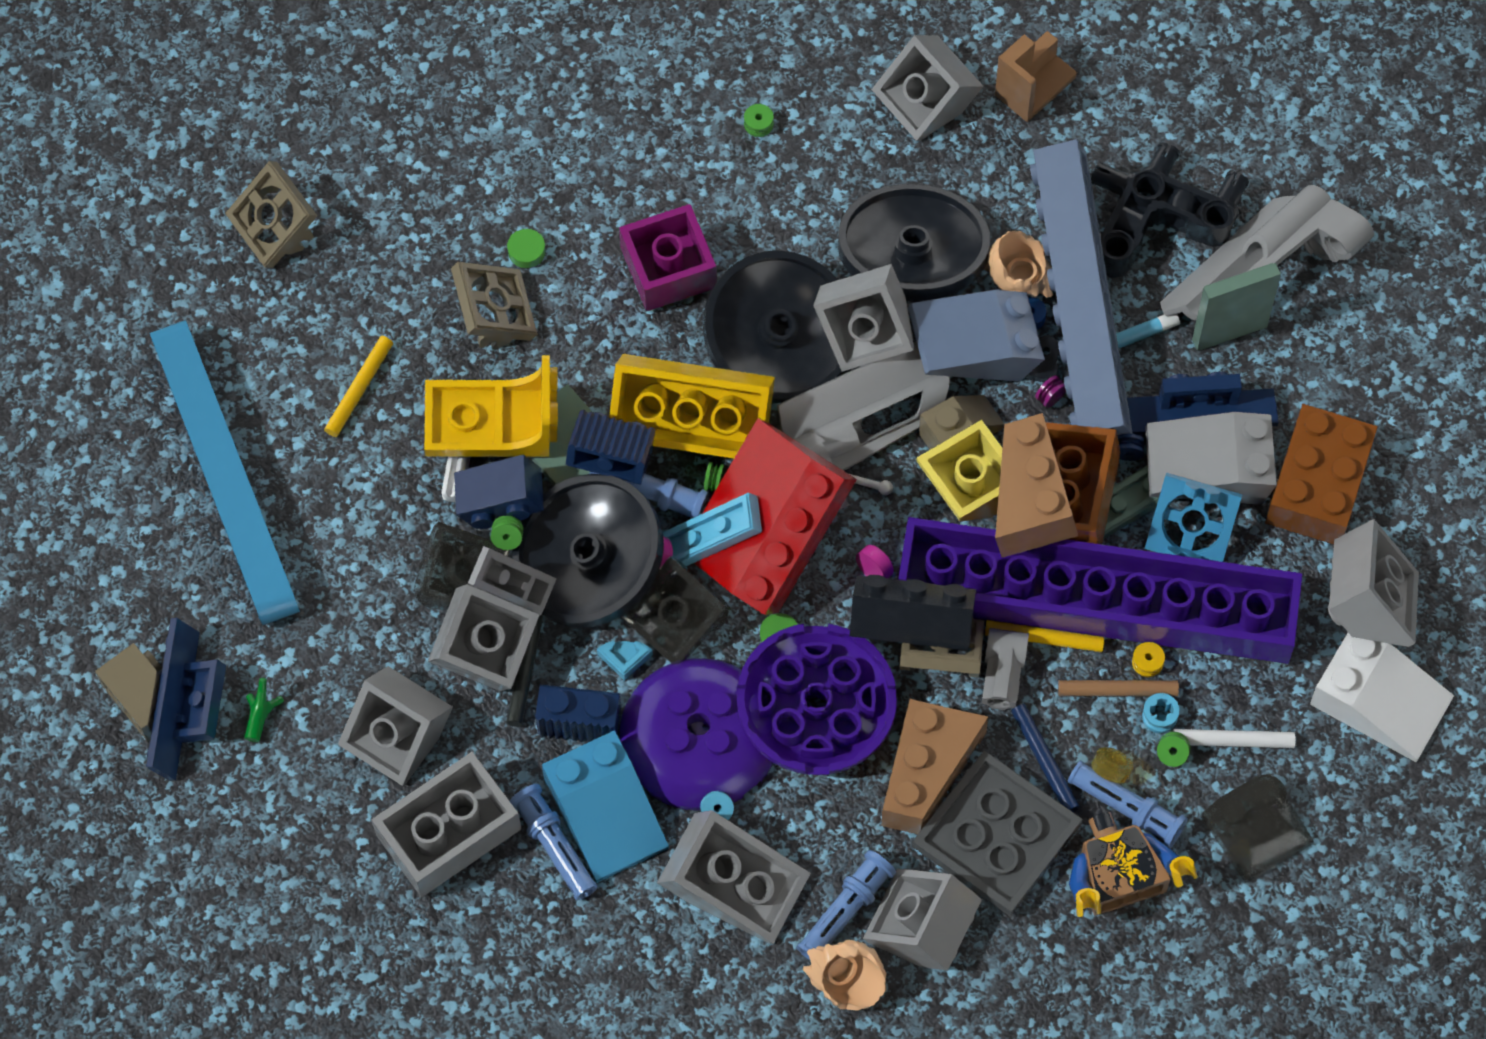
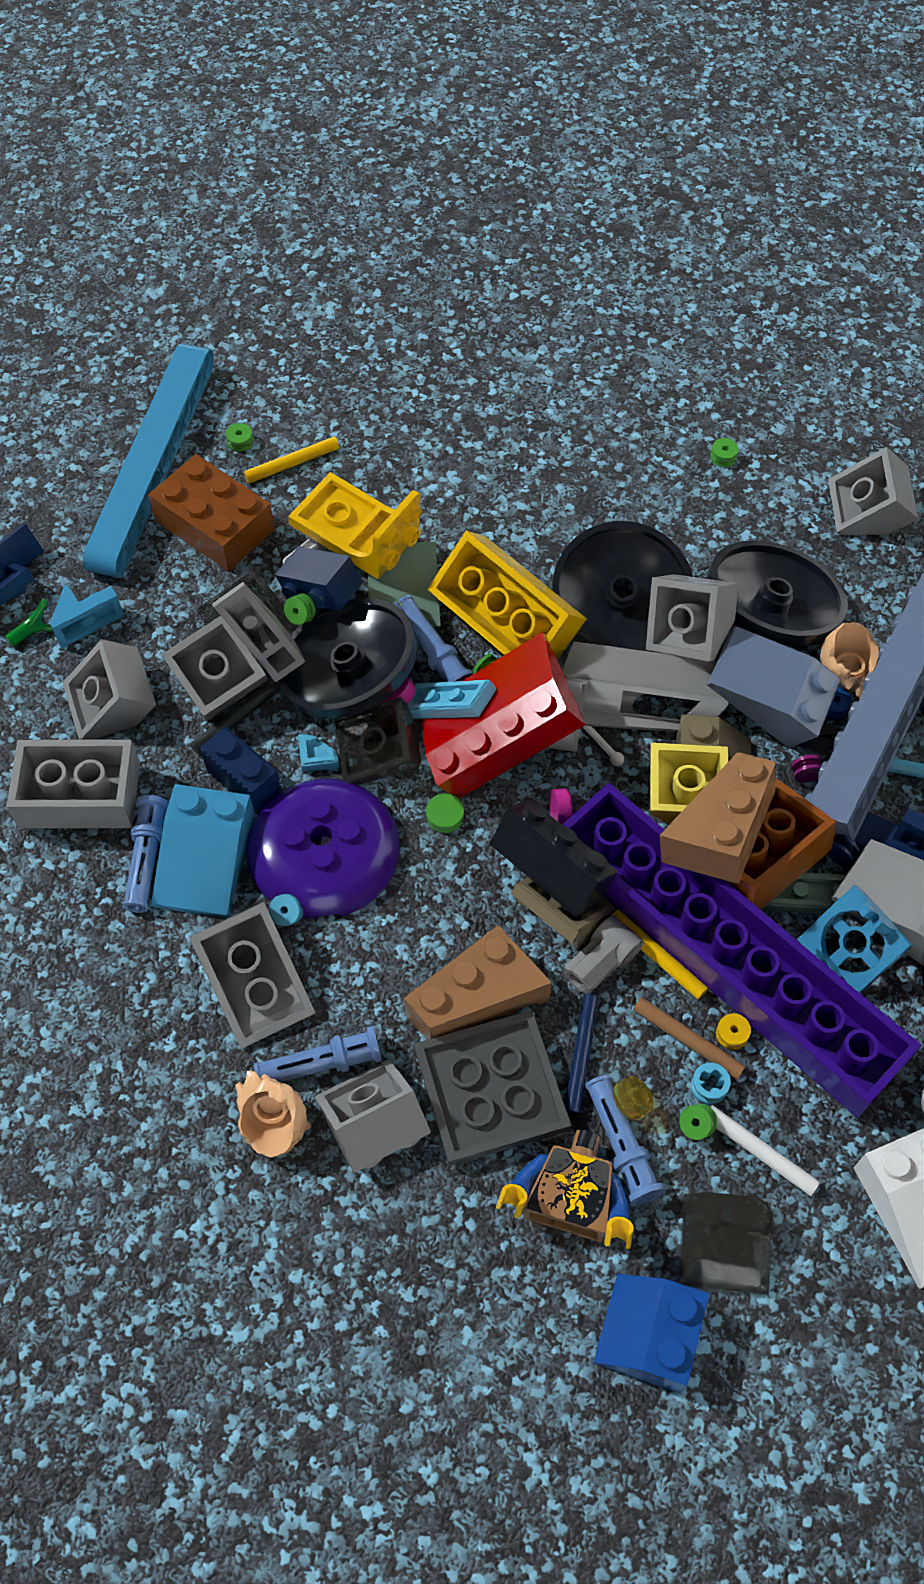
camera: 35 degrees right, 5 degrees down
(287, 394) = (239, 437): none -> bright green piece
(290, 239) = (333, 303): dark tan piece -> none
(302, 674) = (78, 619): none -> dark azure slope
(337, 490) = (212, 512): none -> dark orange brick
(510, 286) = (438, 440): dark tan piece -> none
(526, 248) = (484, 440): bright green tile -> none
(610, 446) = (418, 590): dark blue brick -> none
(668, 257) = (576, 494): magenta brick -> none
(824, 665) = (436, 845): dark purple brick -> none
(1251, 926) = (652, 1330): none -> blue slope

